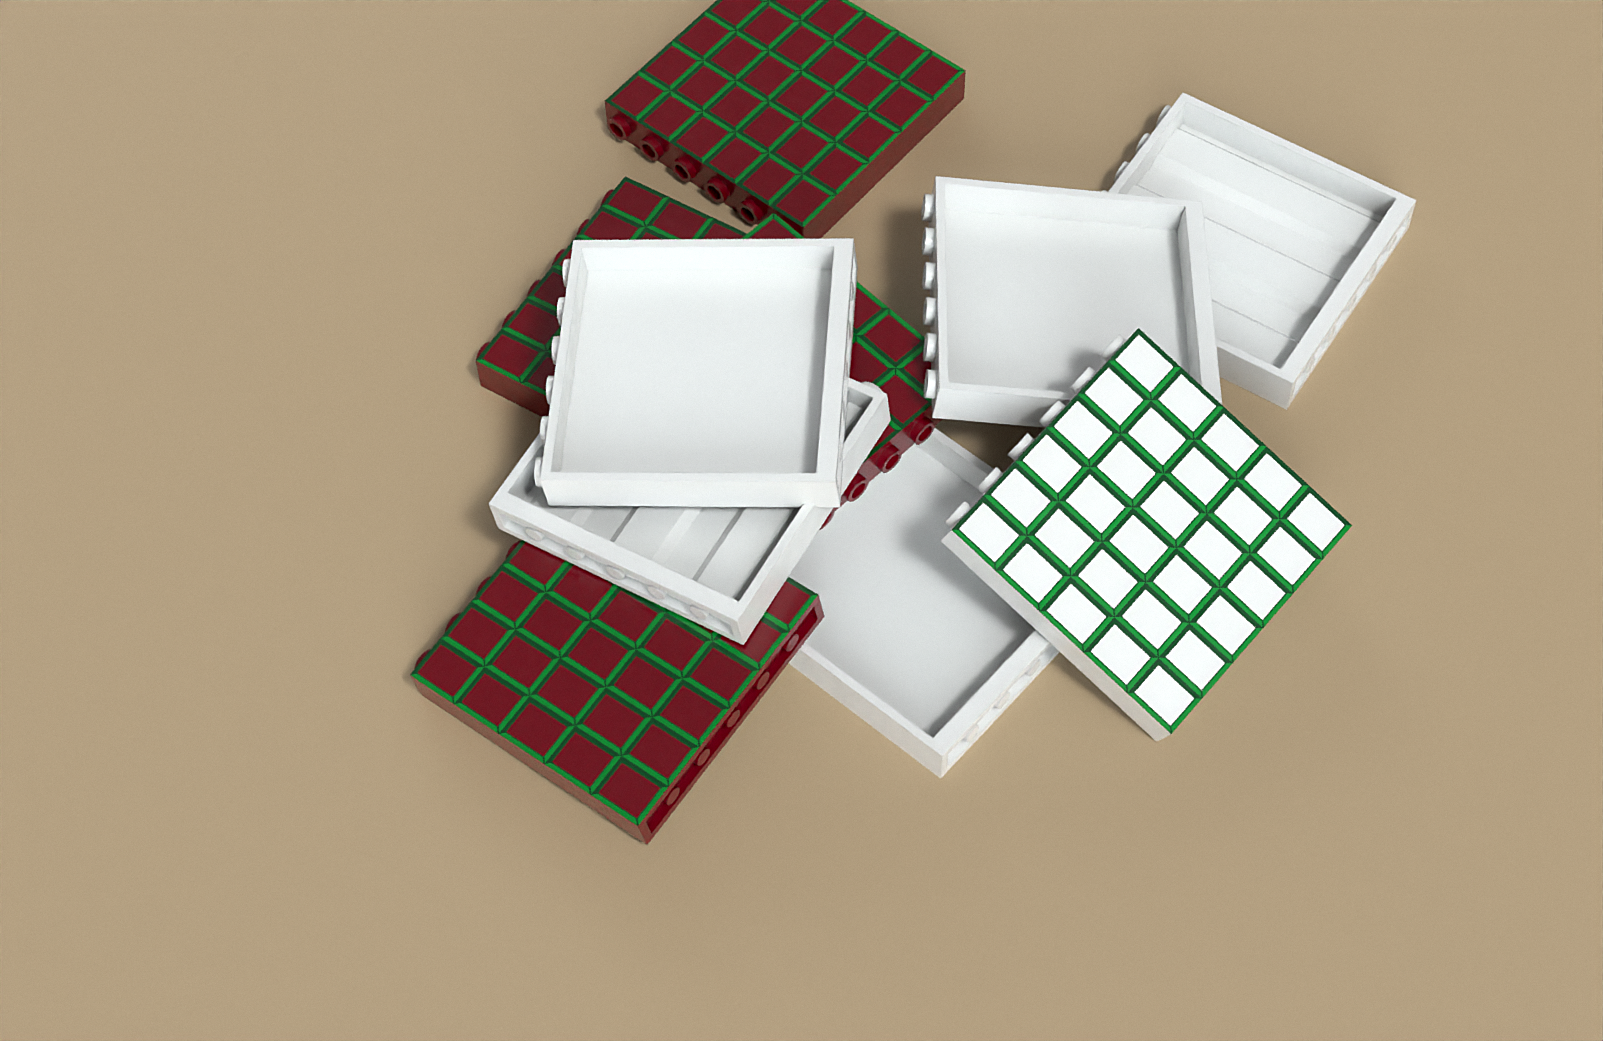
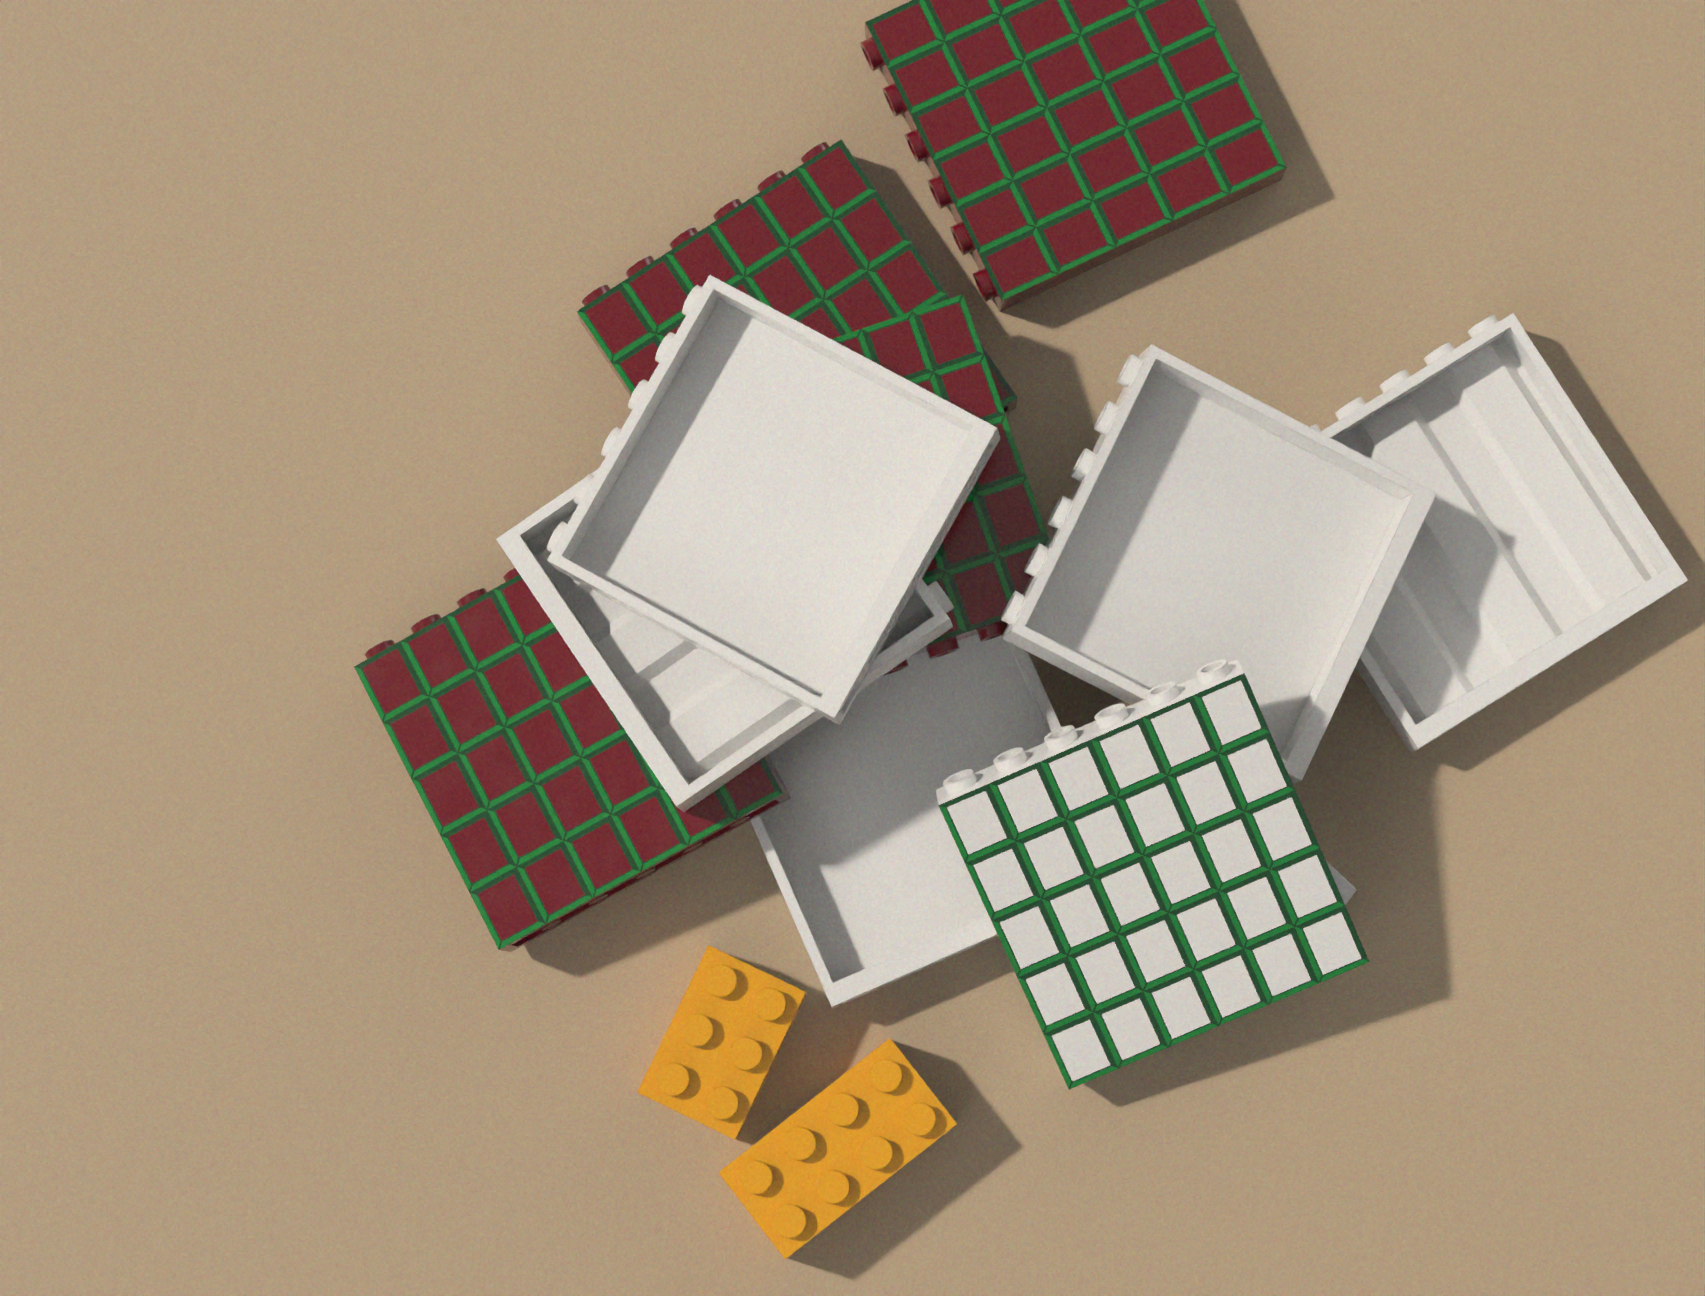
camera: 25 degrees right, 25 degrees up
(864, 831) = (722, 1042): none -> light orange brick
(1005, 870) = (837, 1148): none -> light orange brick

